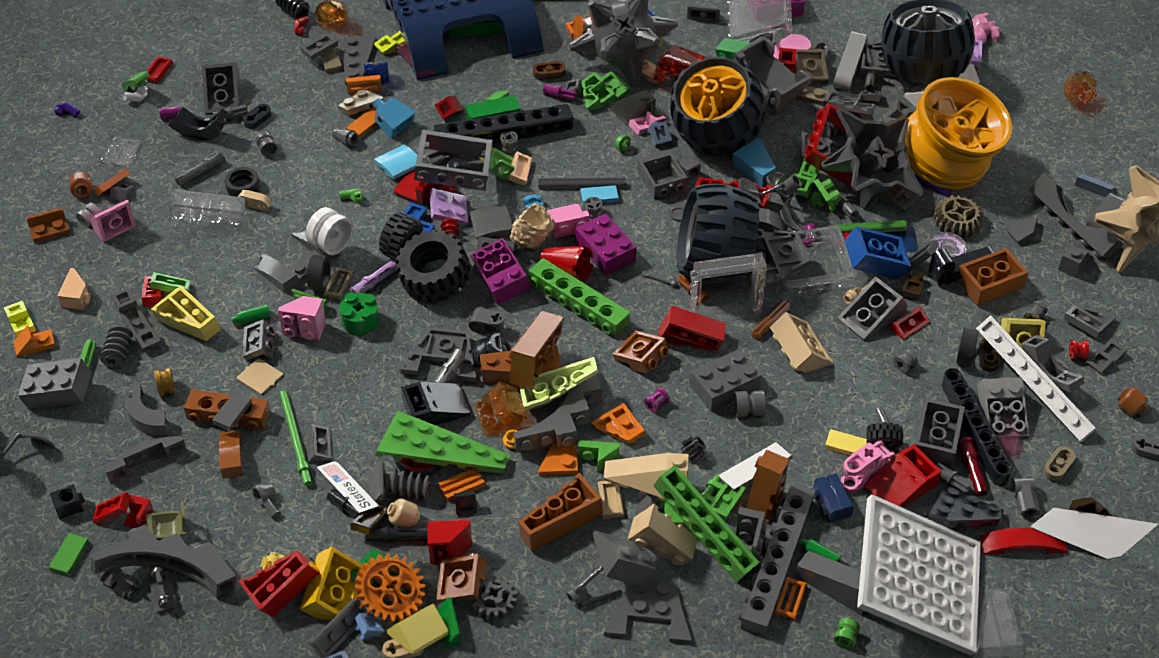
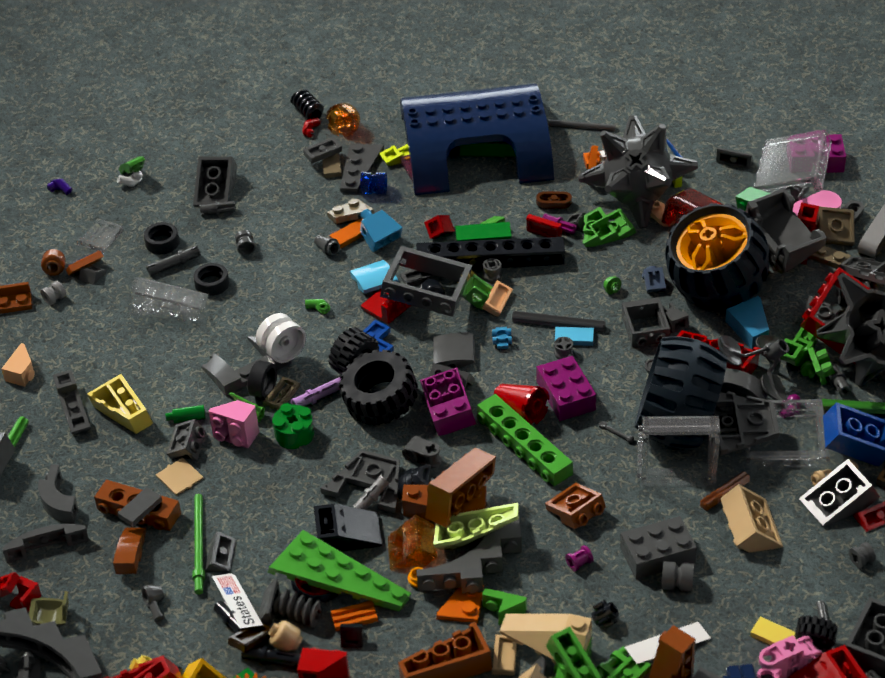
camera: 15 degrees right, 5 degrees down
(113, 221) = (74, 301): bright pink slope -> none
(116, 346) = (45, 426): dark grey piece -> none
(150, 296) = (94, 376): red slope -> none
(158, 69) = (158, 156): red tile -> none
(164, 382) = (83, 469): pearl gold wheel -> none
(168, 112) = (159, 200): magenta pin -> none
(168, 283) = (111, 370): bright green tile -> none
(182, 158) = (165, 246): none -> black tyre
(196, 127) = (180, 217): black arch -> none
(256, 200) = (220, 298): tan beam -> none
(257, 116) = (243, 214): black beam -> none
(367, 83) = (364, 193): orange tile -> none
(448, 208) = (412, 330): lavender plate -> none
(532, 227) = (491, 360): tan hair -> none
(546, 96) = (543, 226): none -> red plate
(566, 219) = (529, 356): bright pink bracket -> none
(620, 425) = (533, 578): orange wing -> none
(634, 106) = (634, 249): clear smoke slope -> none
(641, 124) = (636, 267): bright pink slope -> none
(685, 282) = (653, 450): dark orange axle -> none
(691, 329) = (635, 489): red wedge -> none

